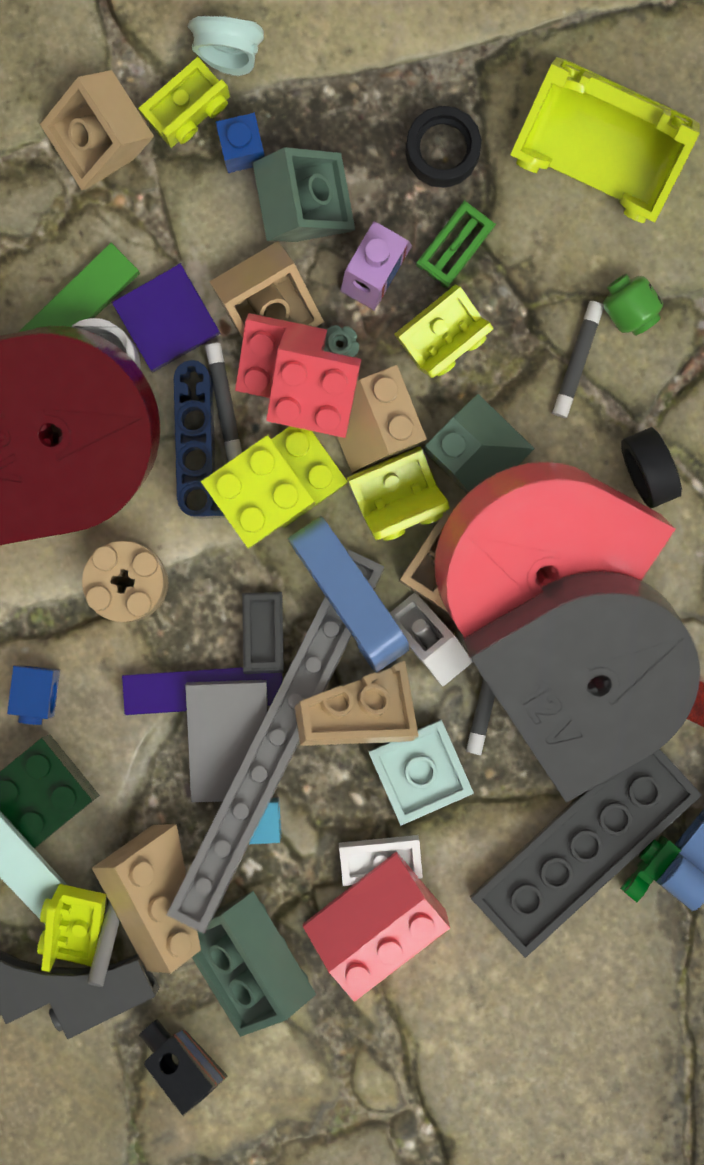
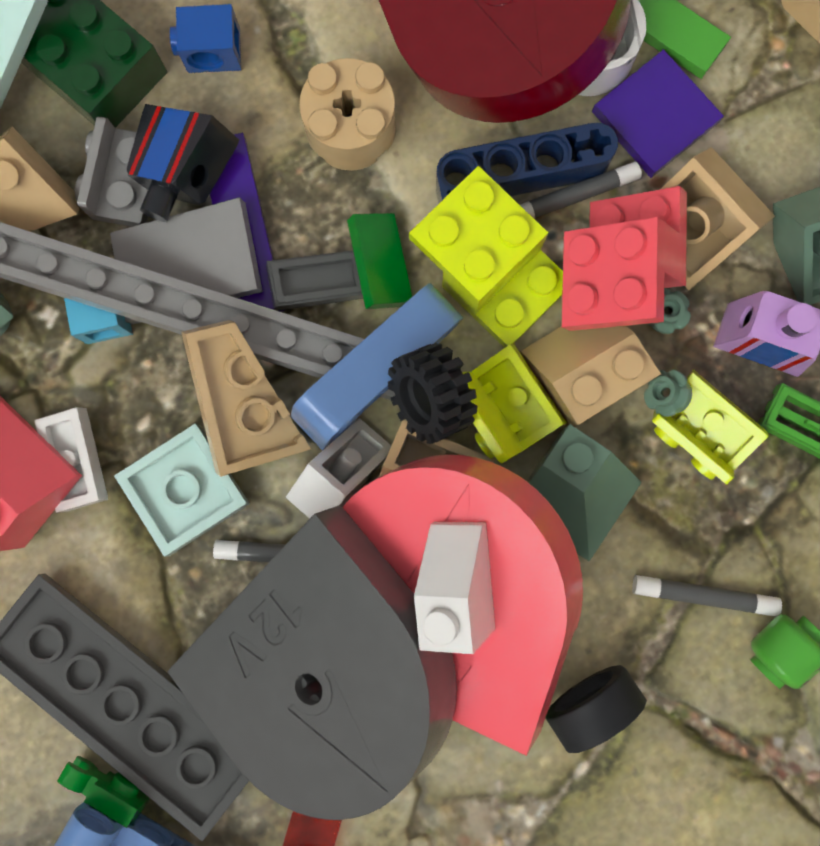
camera: 90 degrees right, 5 degrees down
(140, 786) = (105, 188): none -> light grey bracket
(142, 733) = (178, 157): none -> black torso
(255, 576) = (379, 260): none -> green tile
(386, 552) = (432, 393): none -> black tyre
(412, 351) = (679, 396): none -> sand green plate
(544, 560) = (454, 589): none -> white slope

